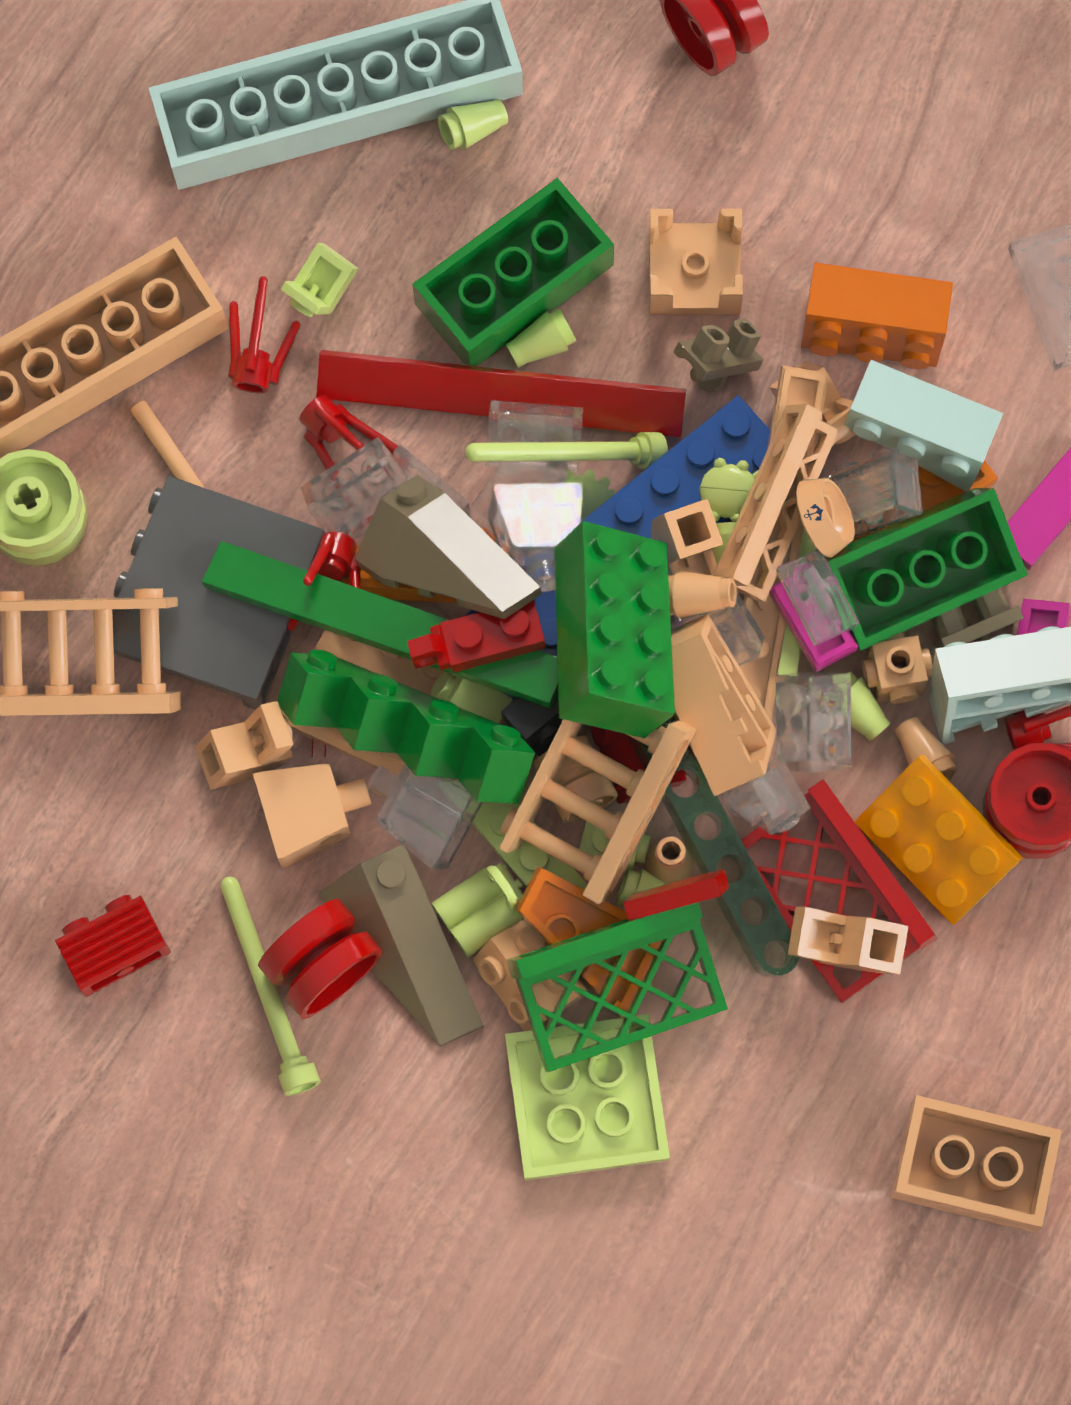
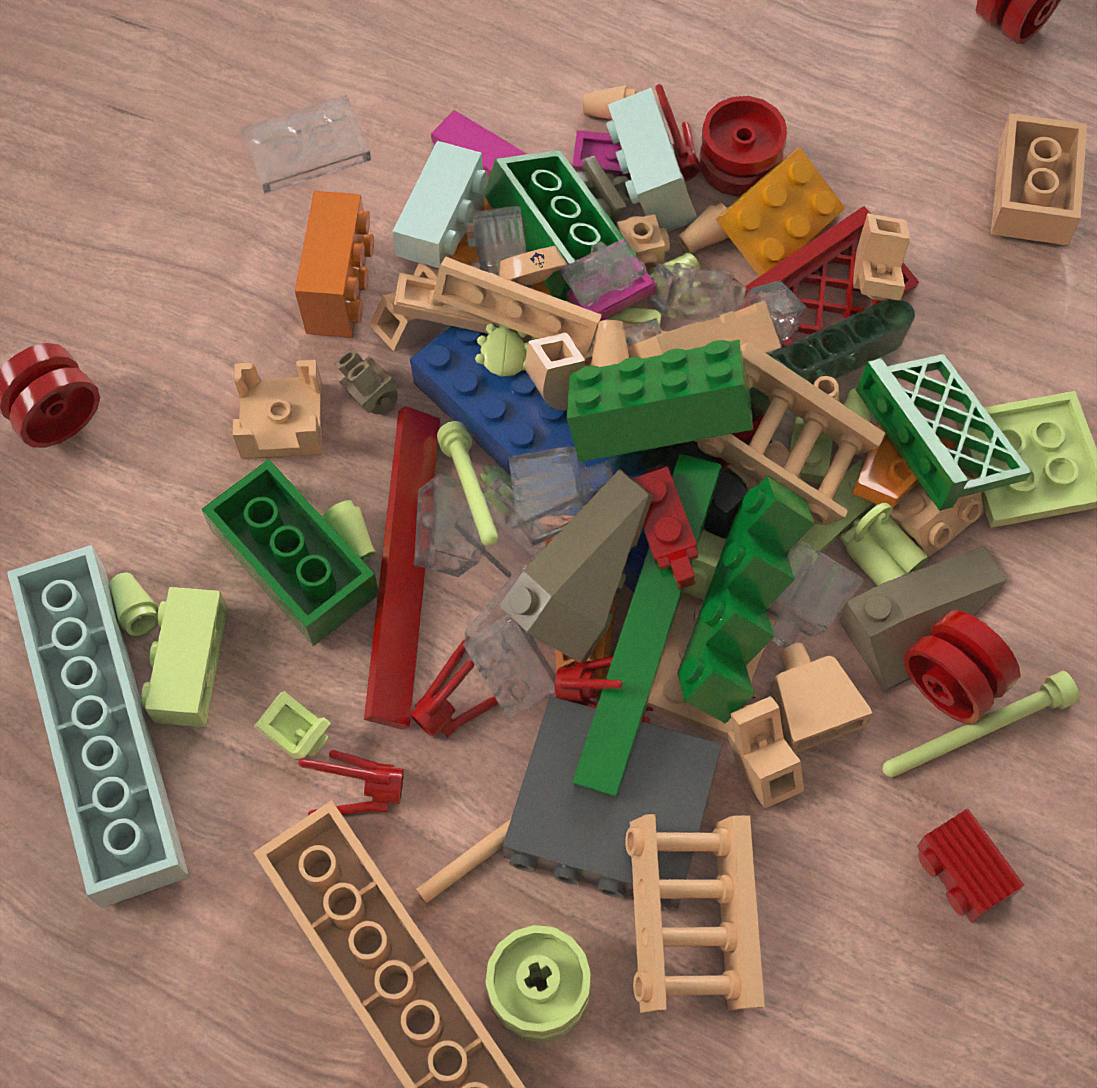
camera: 95 degrees left, 10 degrees down
(406, 176) = (185, 657): none -> yellowish green brick
(676, 894) = (867, 375): red tile -> none

